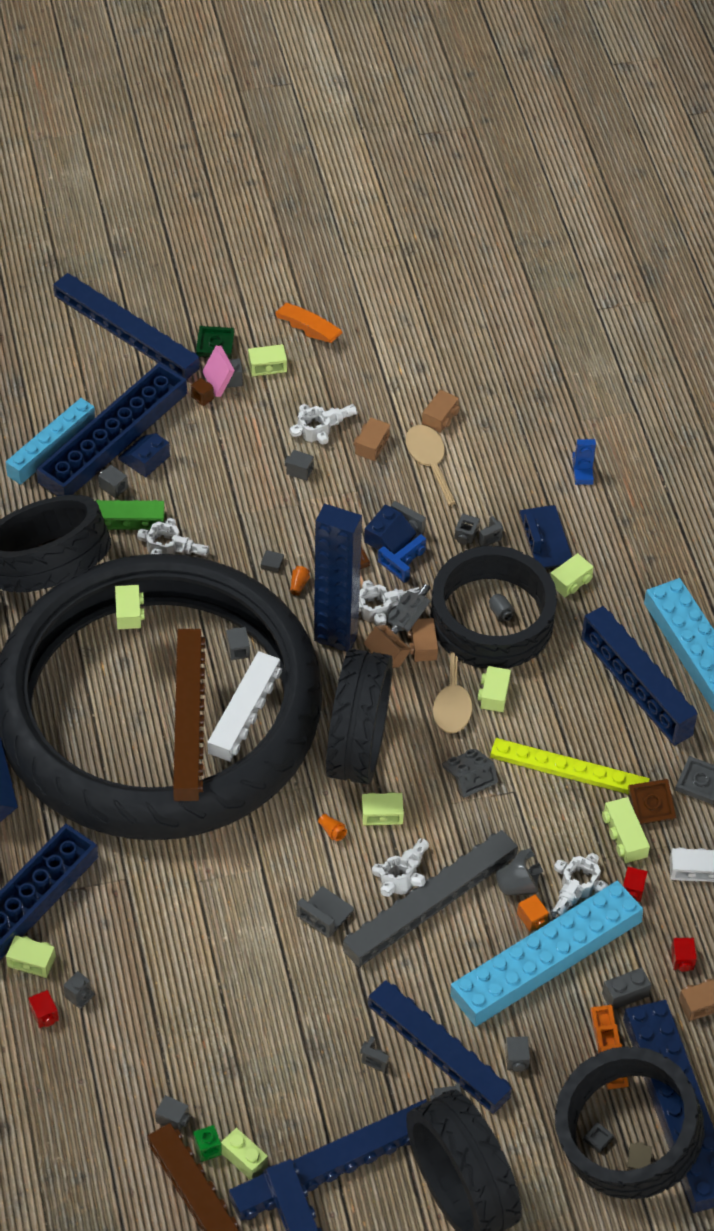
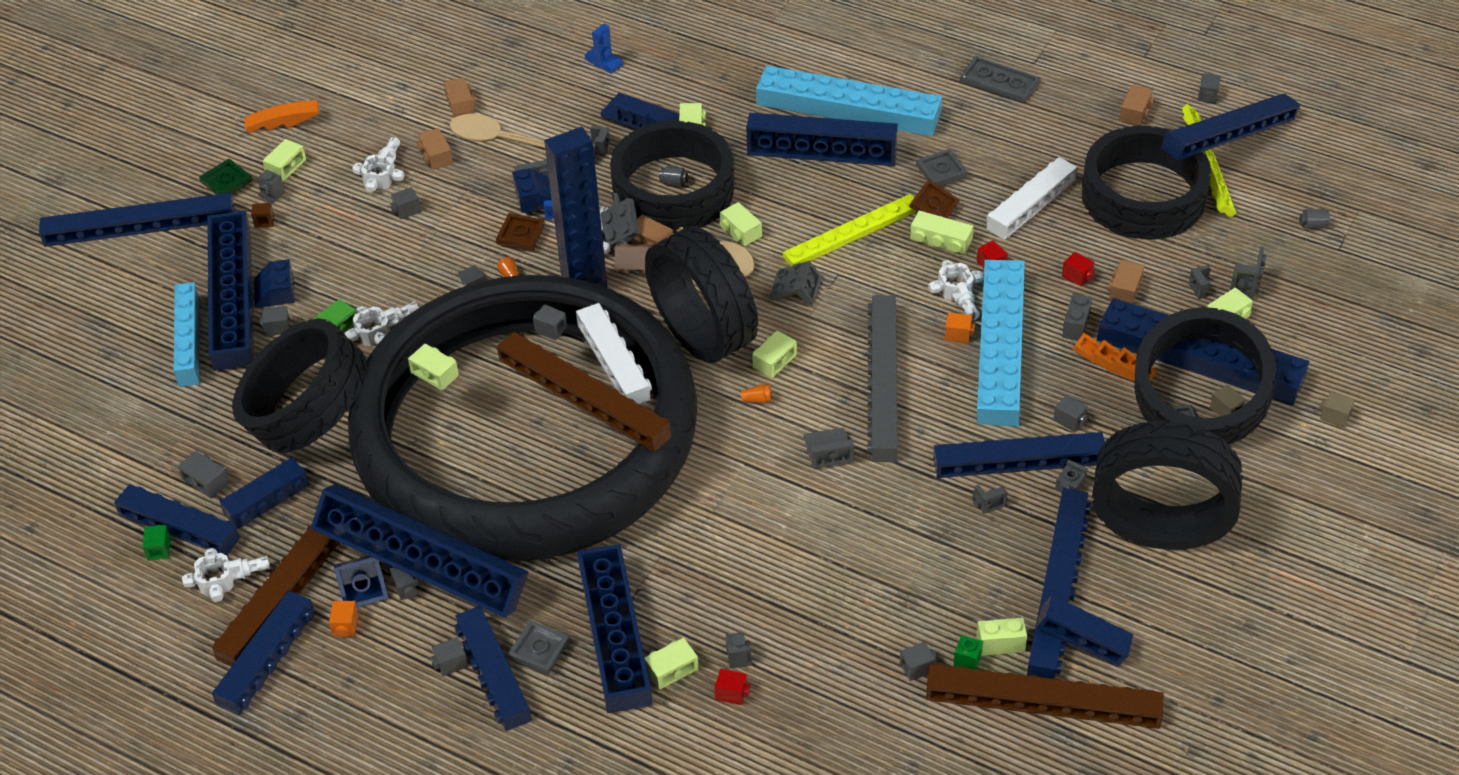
camera: 45 degrees left, 5 degrees down
(218, 370) = (259, 188): bright pink tile -> none
(406, 865) = (840, 370): white piece -> none
(516, 878) = (923, 314): dark grey piece -> none

